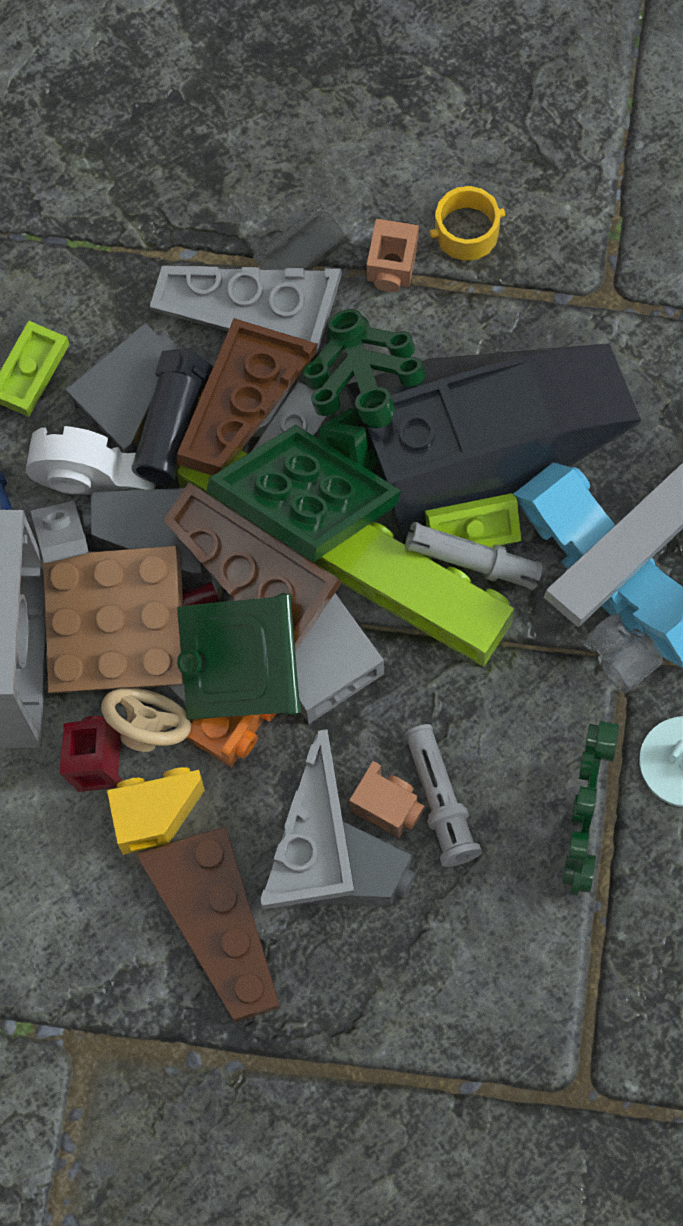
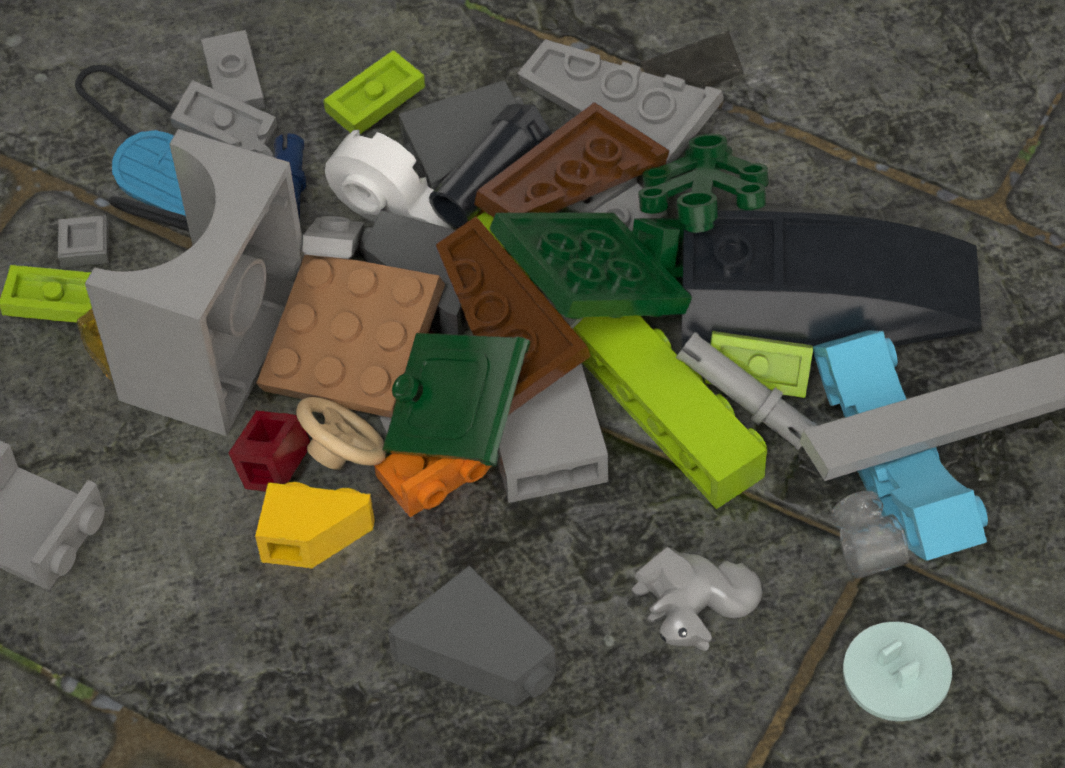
camera: 20 degrees right, 15 degrees down
(211, 908) = (326, 645): reddish brown wing -> none
(313, 850) = (451, 604): light grey wing -> none
(386, 802) = (552, 596): nougat brick -> none
(392, 254) = (778, 107): nougat brick -> none
(441, 818) = (612, 630): light grey pin -> none
(467, 198) = (877, 72): yellow piece -> none
(493, 748) = (690, 584): none -> light grey animal
(579, 865) = (765, 643): dark green plant -> none

